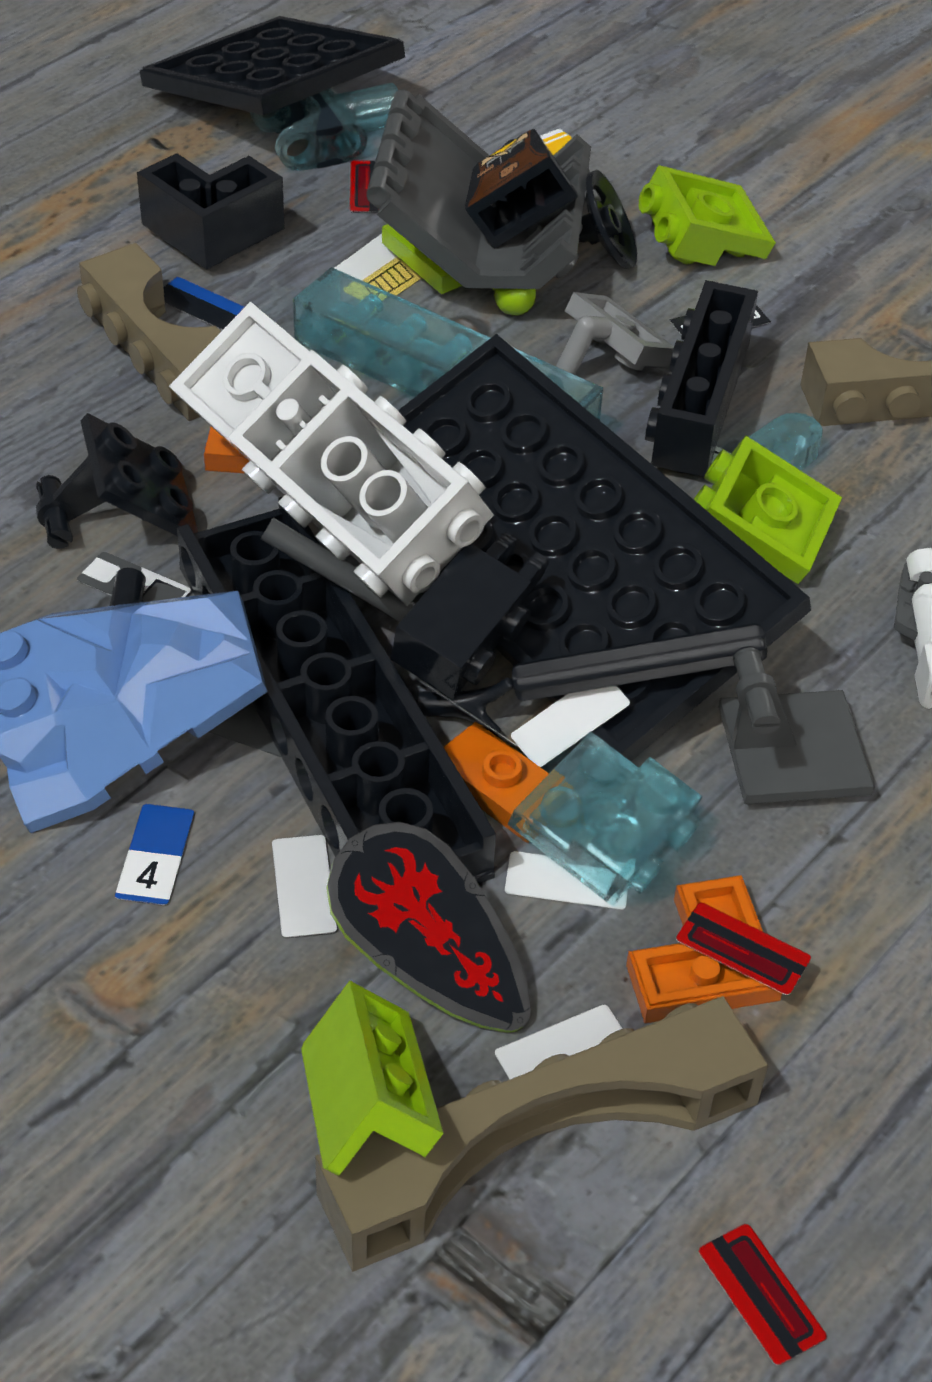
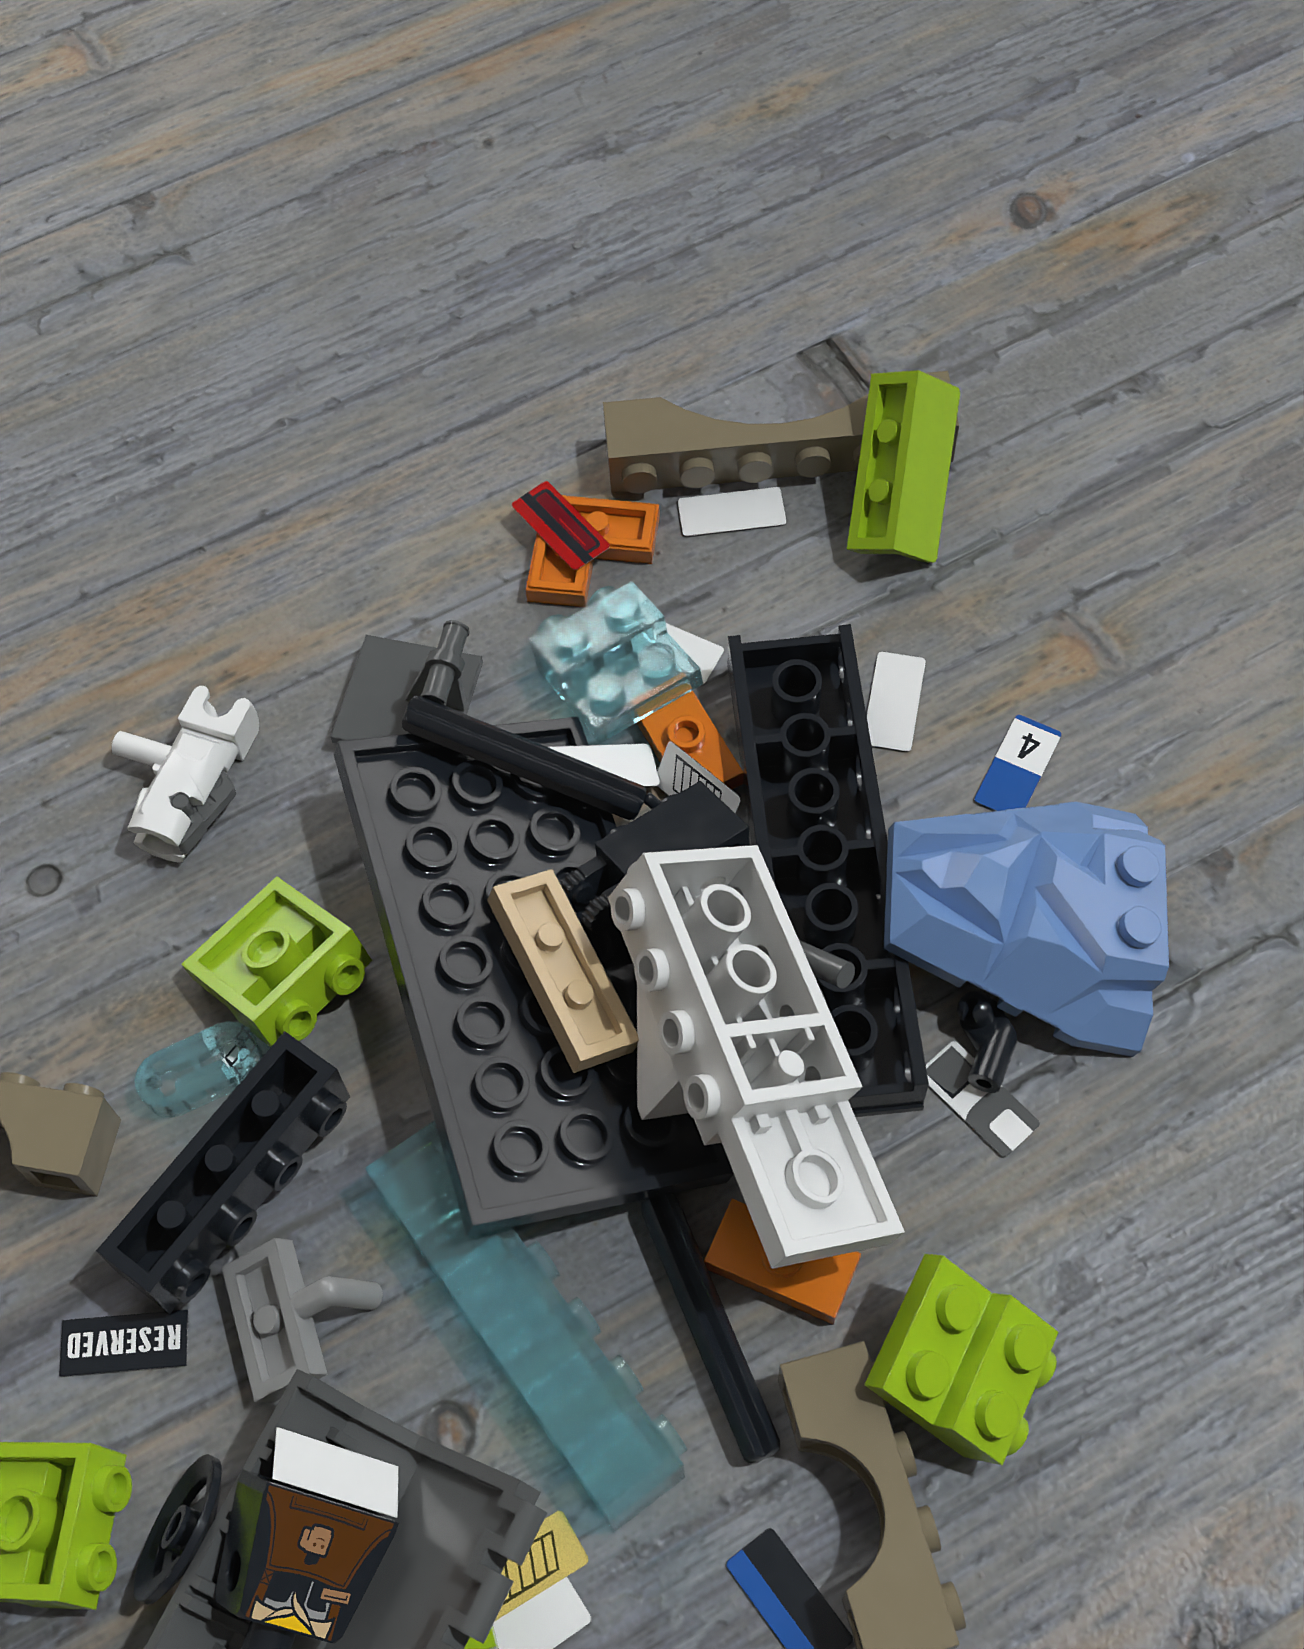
camera: 155 degrees left, 15 degrees up
(107, 384) = (964, 1361): none -> lime plate
(119, 472) = (962, 1200): black plate -> none
(428, 925) = (813, 592): shield -> none
(519, 222) = (335, 1472): none -> white sticker
(530, 510) = (563, 970): none -> tan plate
(762, 1294) = (669, 324): sticker -> none

